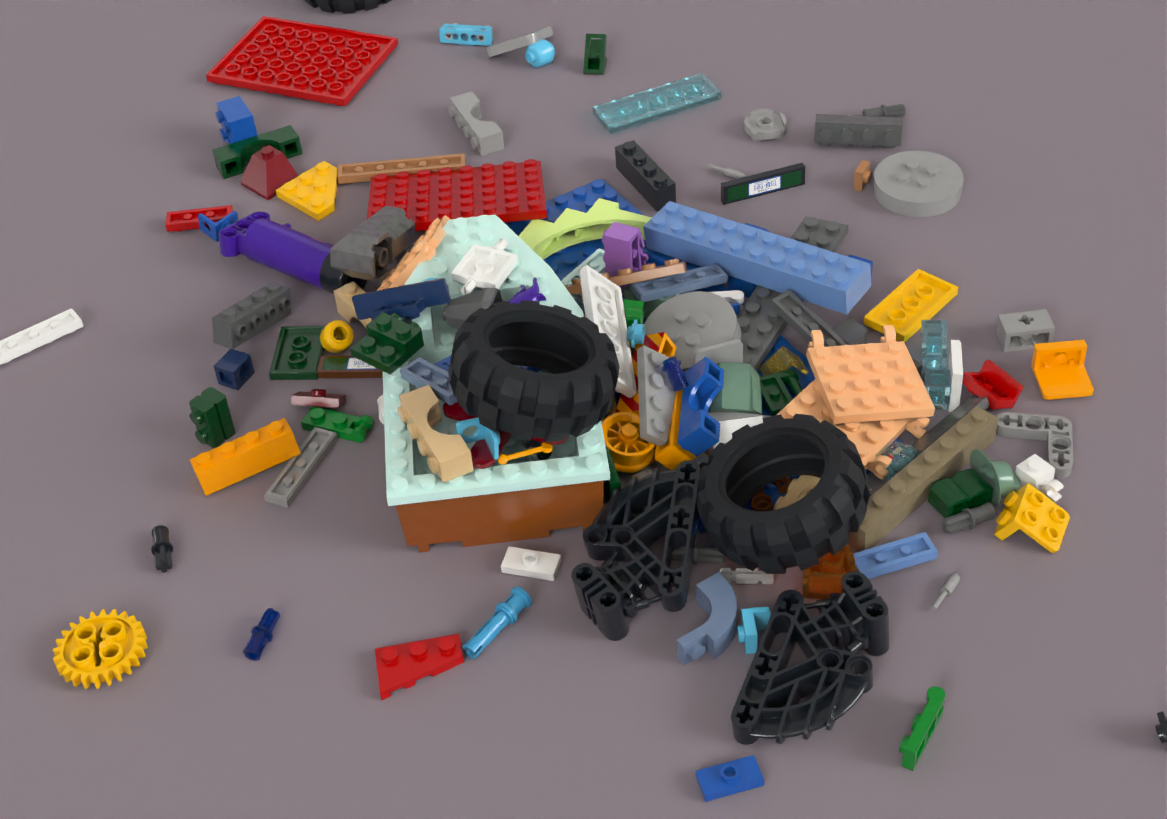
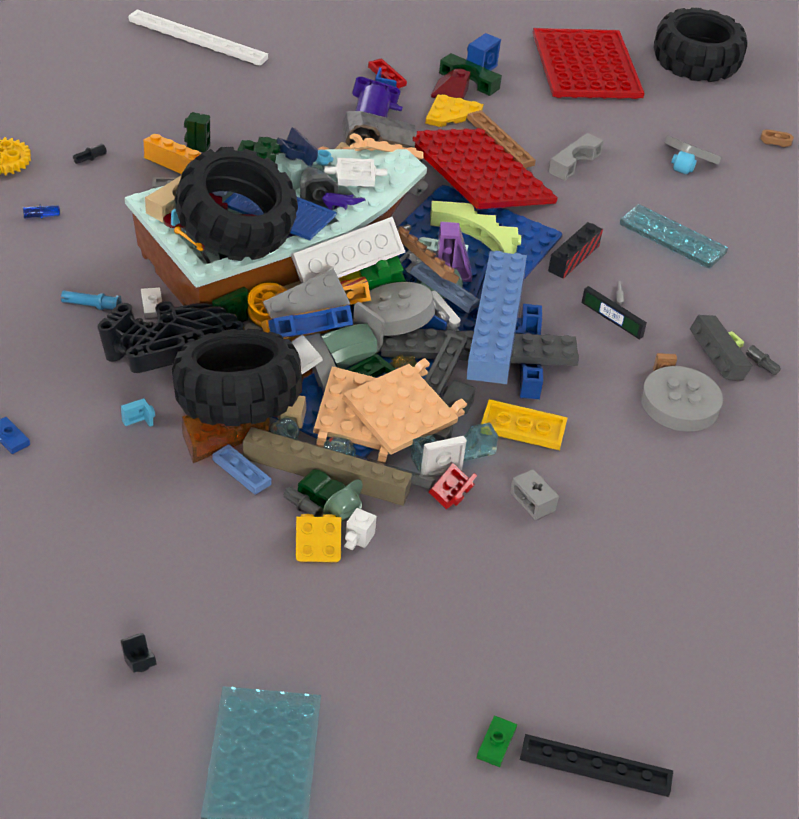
camera: 55 degrees right, 0 degrees up
(234, 369) = (252, 125): dark blue brick -> none
(251, 315) = (302, 118): dark grey brick -> none
(408, 662) = (47, 276): red wing -> none
(457, 34) = (680, 124): medium azure piece -> none
(595, 51) = (700, 190): dark green slope -> none
(636, 333) = (358, 269): medium azure plate -> none
(675, 373) = (325, 296): clear blue pin -> none
(719, 602) = (155, 391): sand blue arch -> none
(765, 125) = (692, 298): light grey plate -> none
(850, 619) = (104, 440): black beam -> none
(923, 728) = (84, 515): green plate -> none
(947, 589) = (232, 507): light grey piece -> none
(1052, 435) = (422, 534): light grey beam -> none
(1061, 369) = (497, 526): light orange bracket -> none

